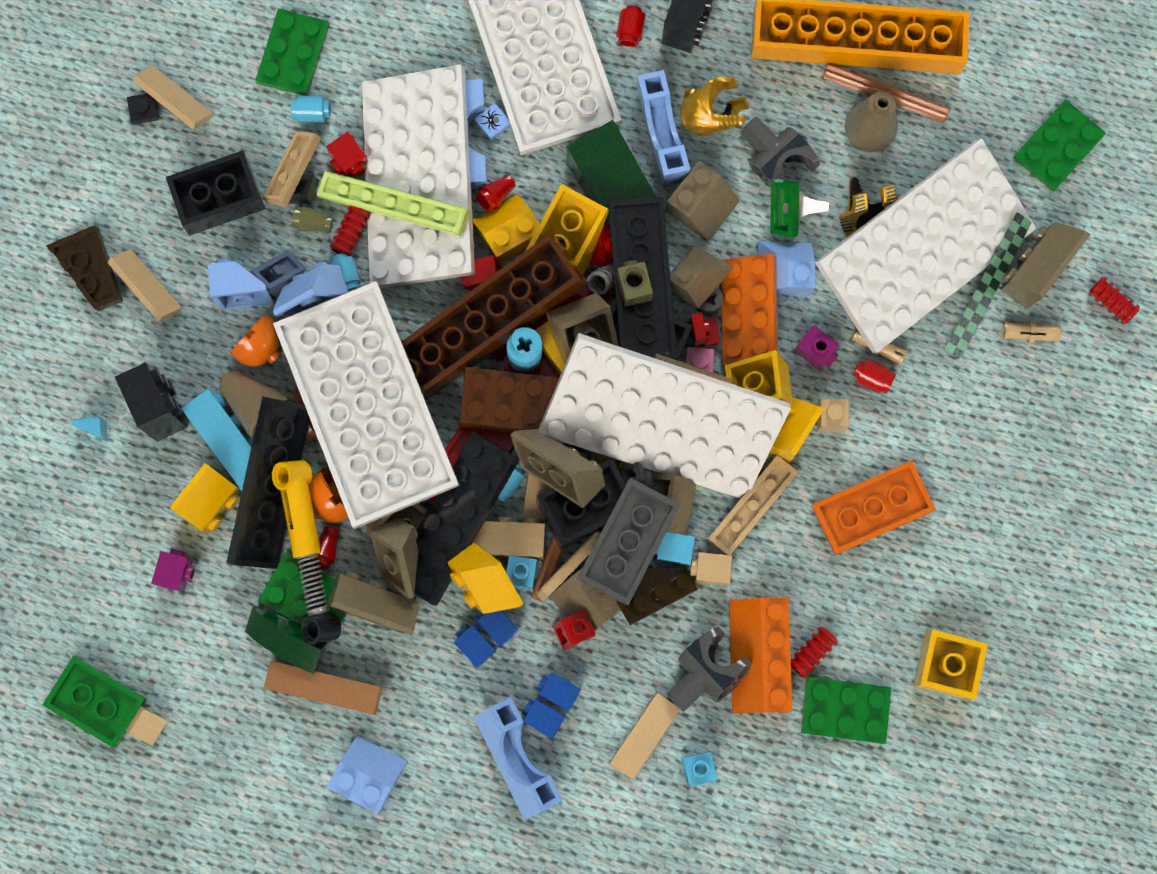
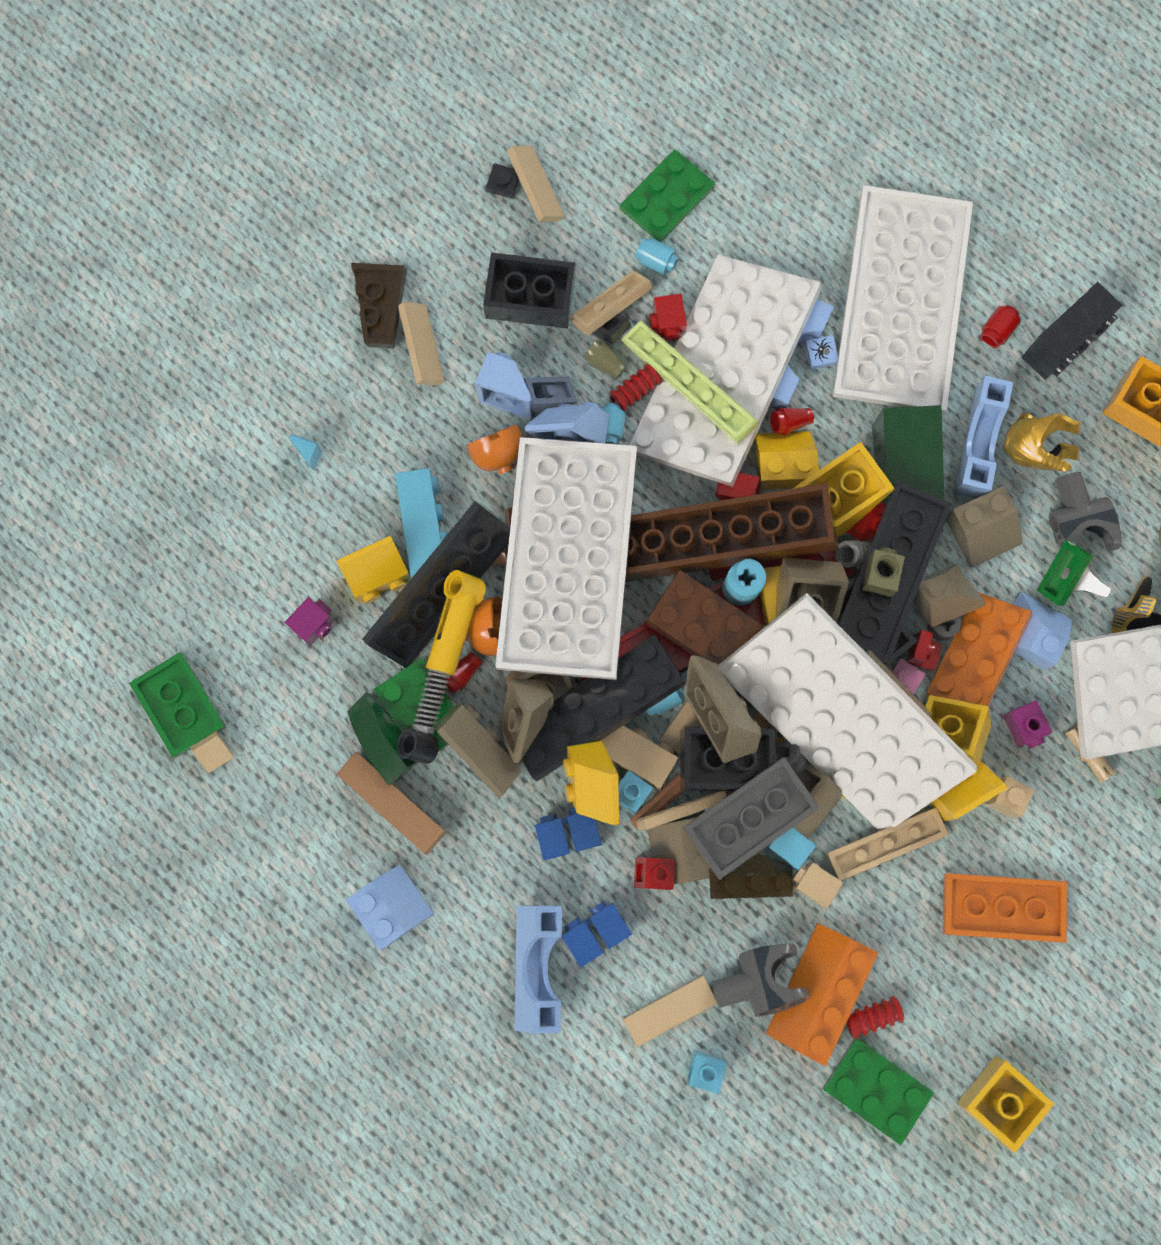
camera: 30 degrees right, 0 degrees up
(152, 401) = (371, 453): black brick -> none
(245, 397) = (458, 493): dark tan cone -> none
(874, 376) = (1070, 780): red brick -> none

